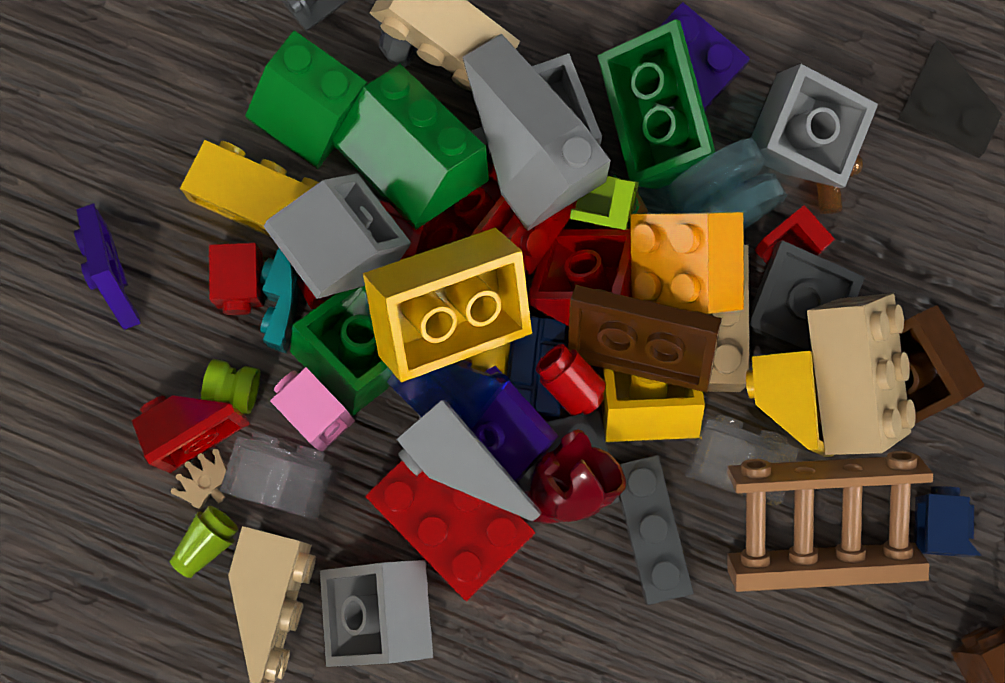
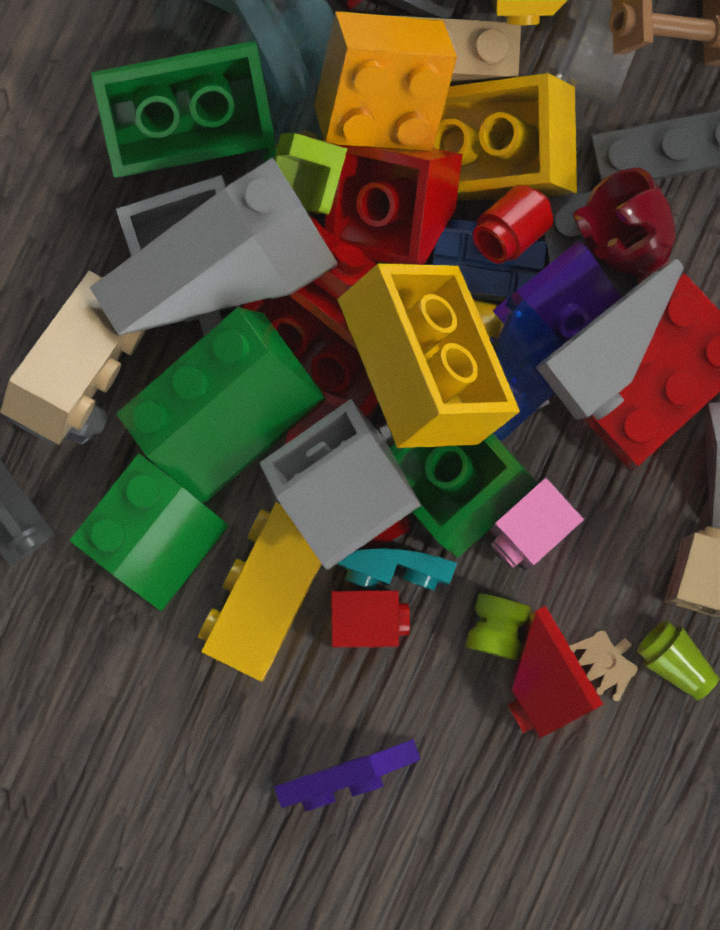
camera: 85 degrees left, 5 degrees up
(277, 476) = (606, 572): clear brick -> none
(643, 337) = (474, 134): reddish brown plate -> none
(713, 56) = (107, 43): dark purple wing -> none

